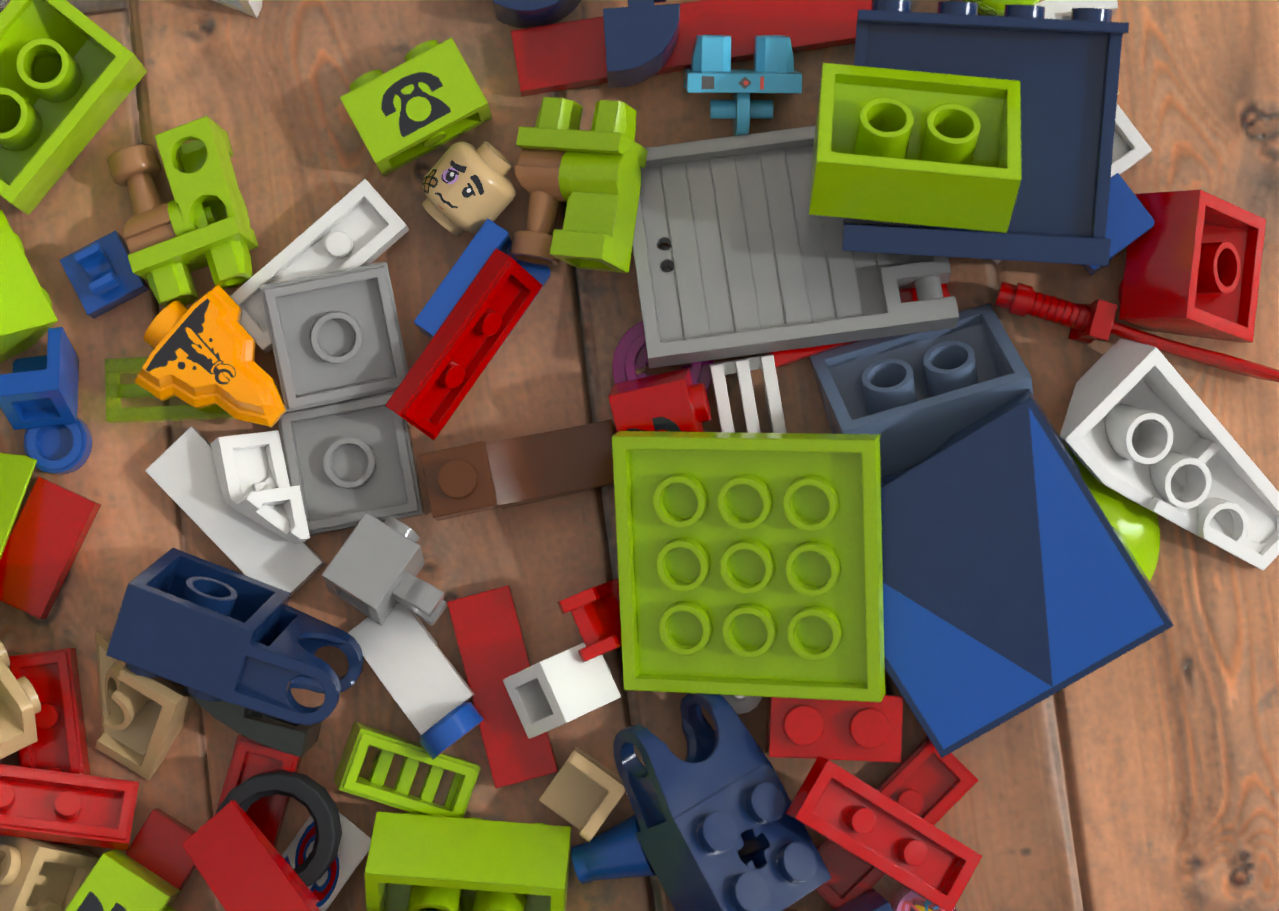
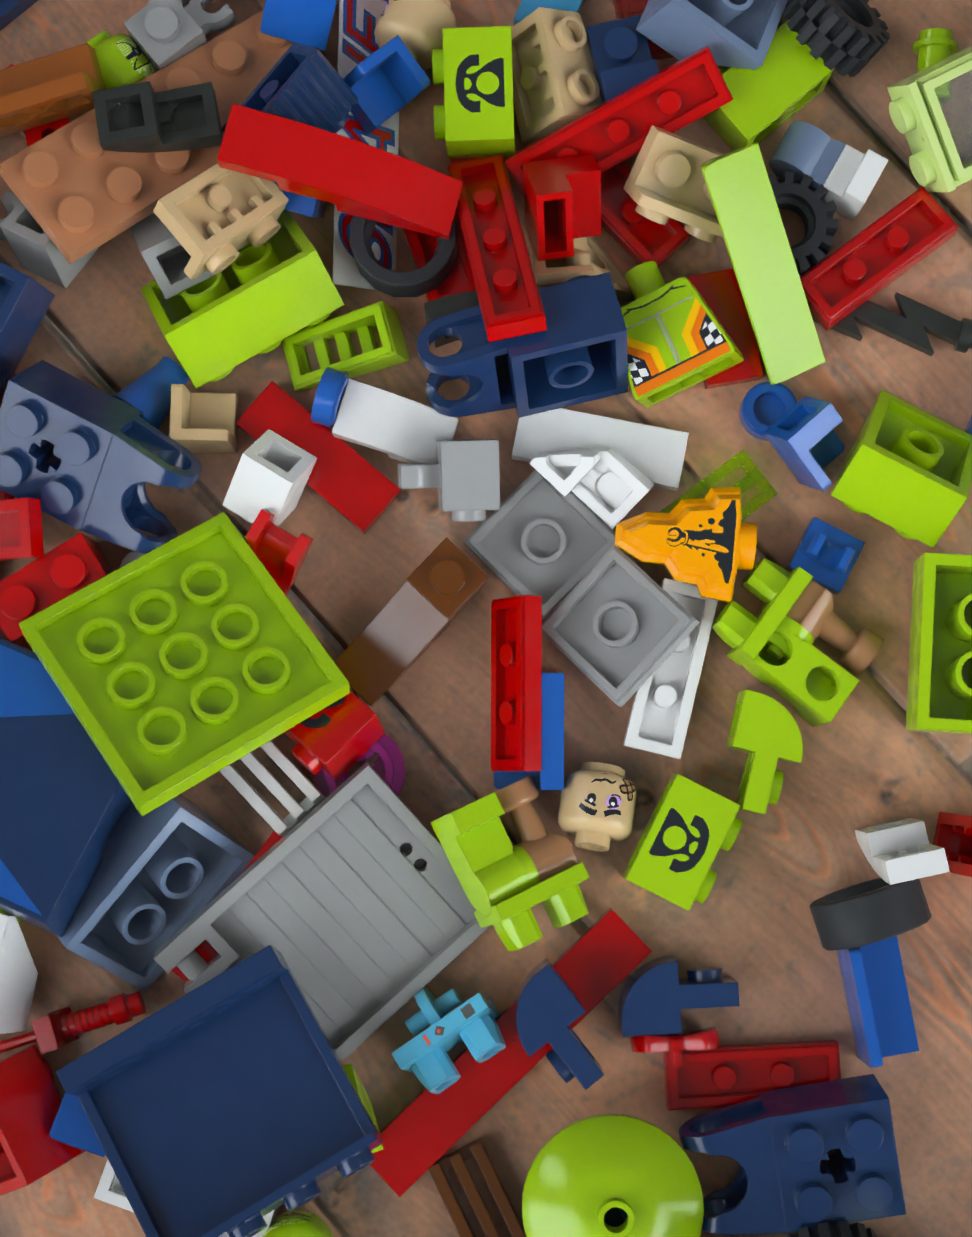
camera: 145 degrees right, 0 degrees up
(88, 565) = (671, 336): none -> lime torso
(105, 762) = (561, 203): none -> red piece
(194, 753) = (497, 250): none -> red tile
(273, 146) = (768, 735): none -> lime brick
(916, 148) = (262, 1064): lime slope -> none

